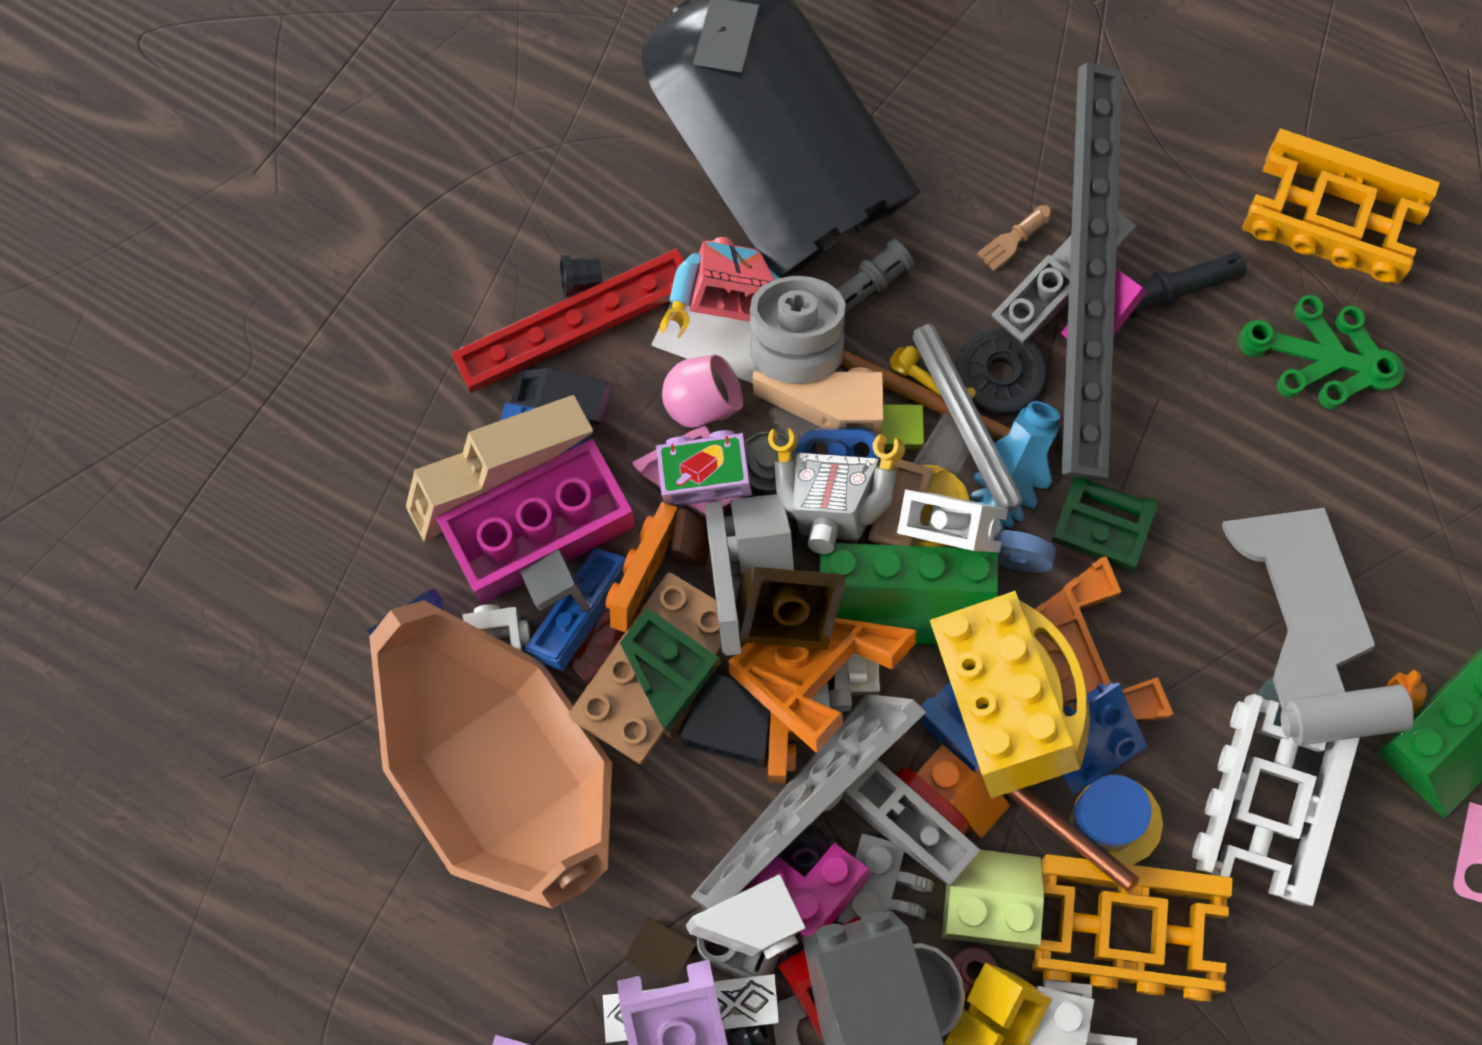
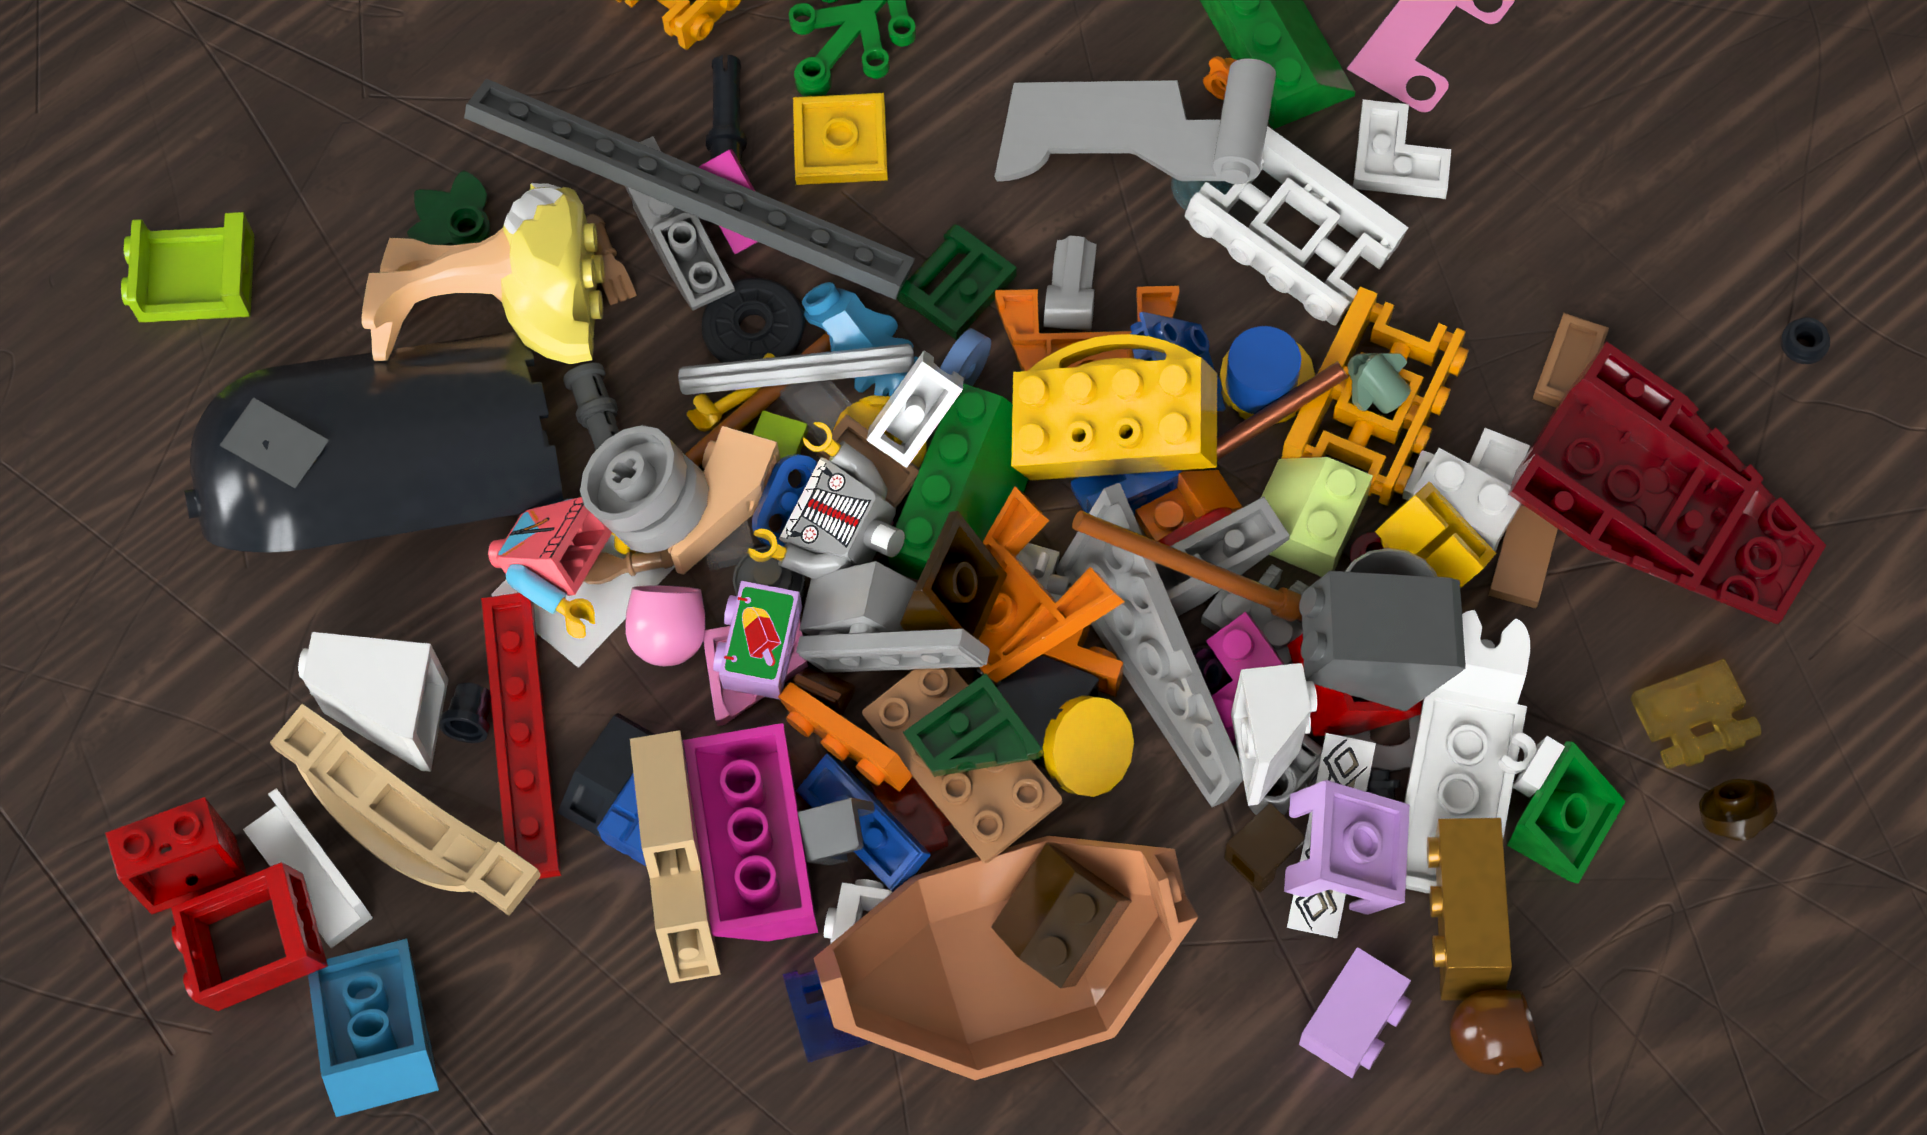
camera: 70 degrees left, 5 degrees down
(303, 299) = (371, 1029): none -> dark azure slope
(362, 211) = (296, 925): none -> red window
(387, 105) = (200, 848): none -> red window
(418, 210) = (285, 839): none -> white panel
(472, 256) = (397, 820): none -> tan piece
(537, 794) = (1059, 917): none -> dark brown slope
(563, 202) = (379, 690): none -> white slope
(702, 771) = (1088, 746): none -> yellow tile
(740, 334) = (609, 566): none -> medium nougat piece
(889, 896) = (1282, 602): none -> dark orange bar
(974, 177) = (534, 265): none -> animal
(1009, 101) = (447, 213): none -> dark green plate
(1127, 623) = (1071, 296): none -> light grey piece
(1141, 922) = (1378, 381): none -> sand green piece
(1207, 381) = (840, 138): none -> yellow tile
(1380, 874) = (1391, 165): none -> white plate

